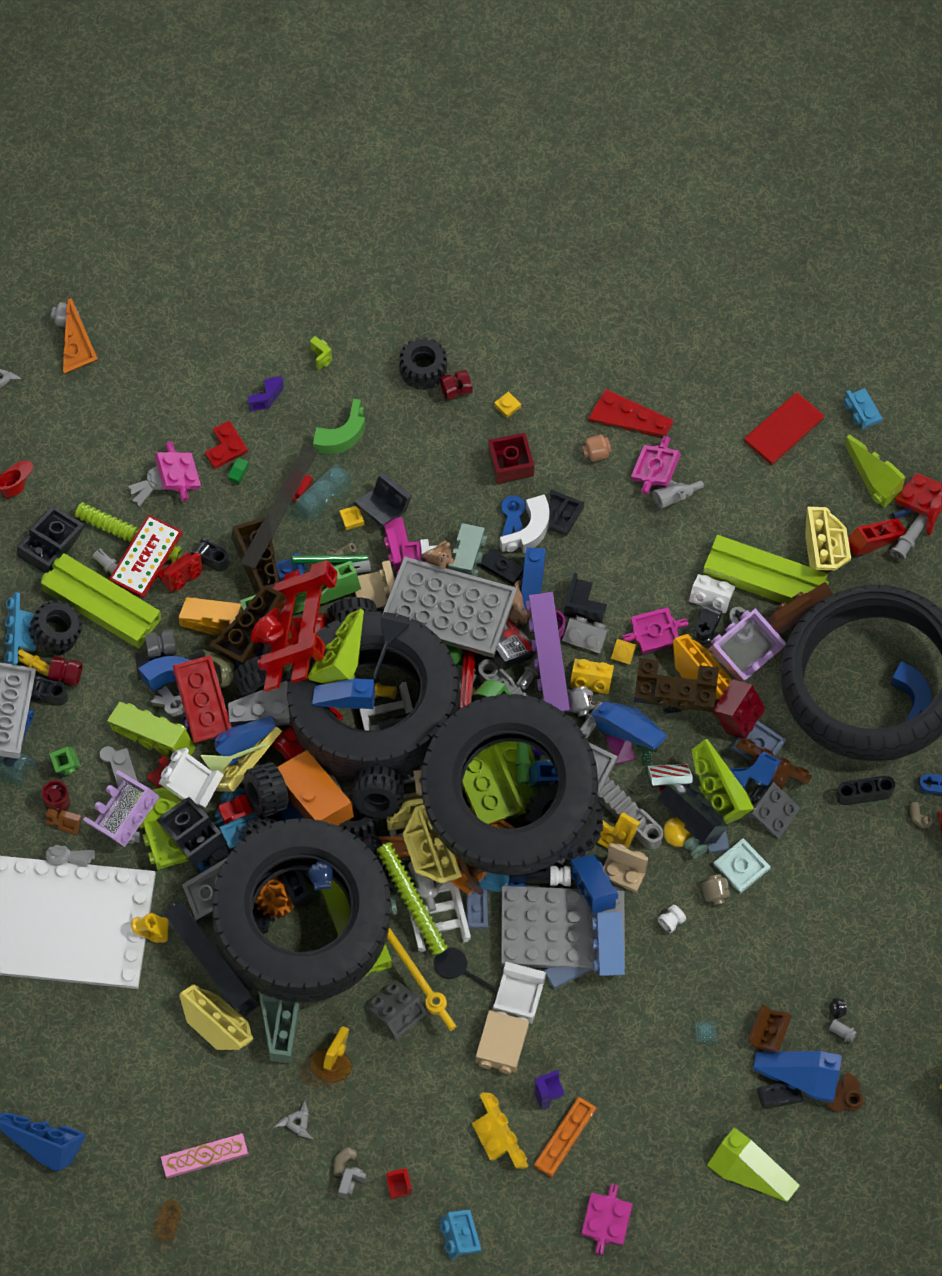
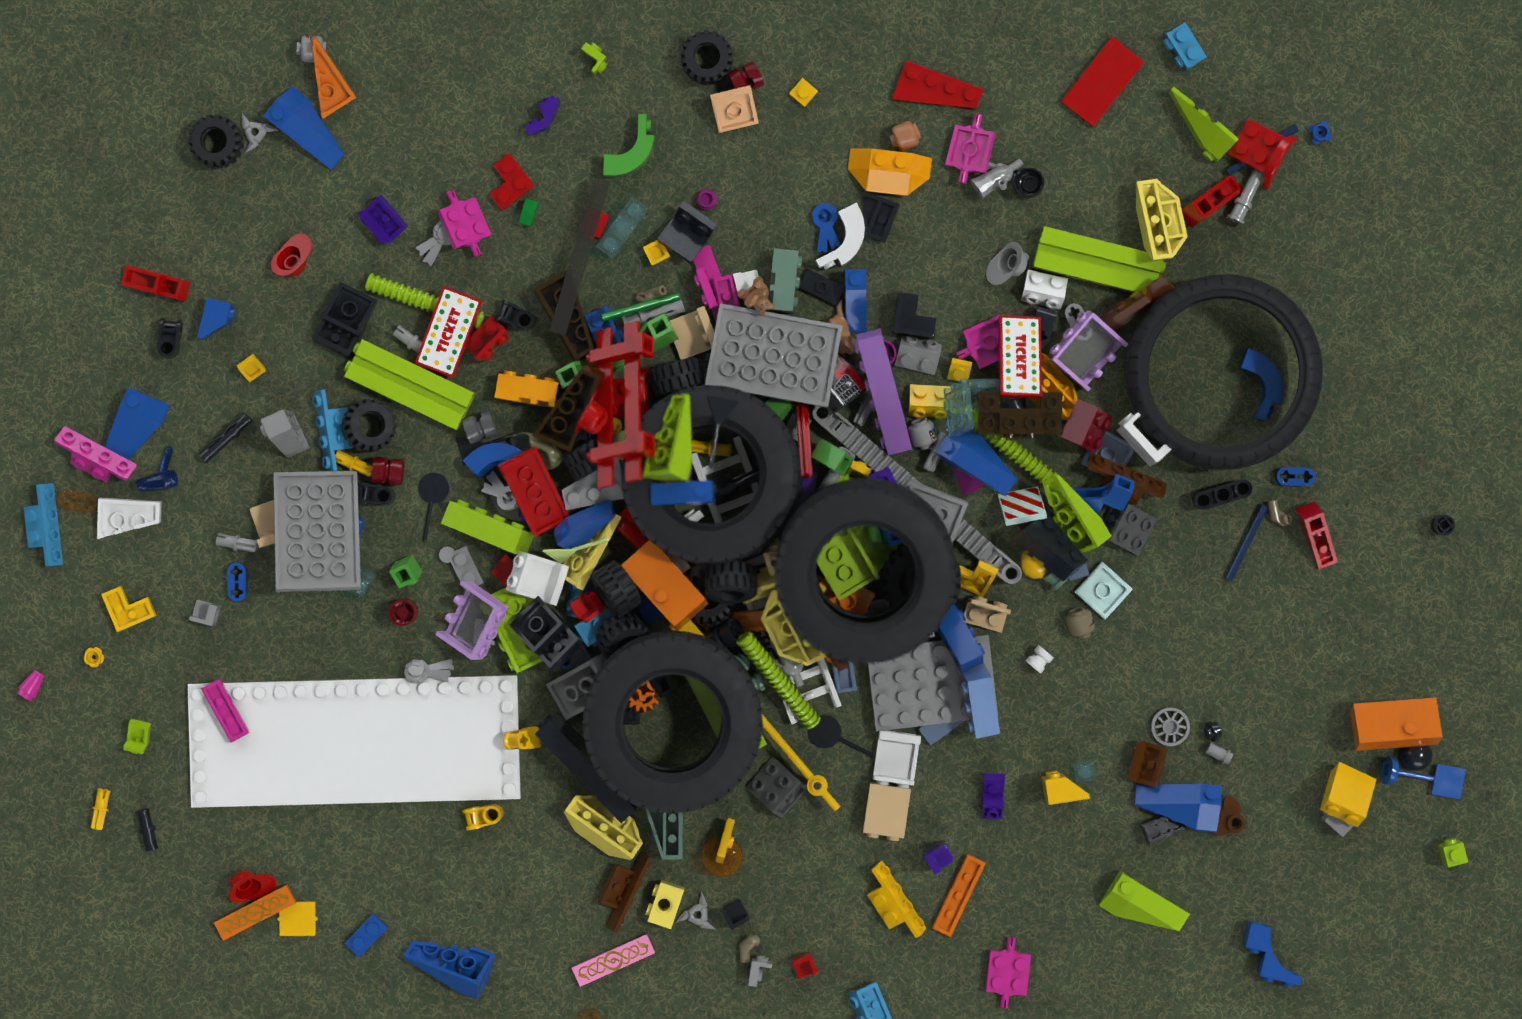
camera: 10 degrees left, 25 degrees up
(45, 377) = (301, 122): none -> blue wedge
(66, 820) = (420, 635): dark orange plate -> none
(95, 997) = (478, 816): none -> yellow piece
(102, 460) = (382, 220): none -> dark purple bracket
(105, 697) = (432, 489): none -> black piece
(223, 1083) = (621, 888): none -> reddish brown bracket
(261, 1116) = (673, 894): none -> light yellow brick
(320, 875) = (688, 699): dark blue animal -> none
(335, 1125) = (735, 914): none -> black panel
(405, 480) = (706, 199): none -> magenta plate
(442, 406) = (734, 109): none -> light nougat tile
(511, 458) = (815, 161): dark red brick -> none
(579, 474) = (889, 170): none -> light orange wedge
(611, 1042) = (993, 796): none -> dark purple slope
(624, 665) = (958, 403): none -> clear light blue bracket
(658, 718) = (1017, 453): none -> lime piece
(680, 565) = (1007, 263): none -> light grey piece
(682, 636) = (1020, 356): none -> tile
(682, 1039) = (1061, 789): none -> yellow slope
(706, 500) = (1028, 182): none -> black hair
(789, 728) = (1139, 442): none -> white panel
(796, 1000) = (1170, 726): none -> light grey wheel
(878, 1247) = (1258, 939): none -> blue arch
(885, 839) = (1246, 542): none -> dark blue bar

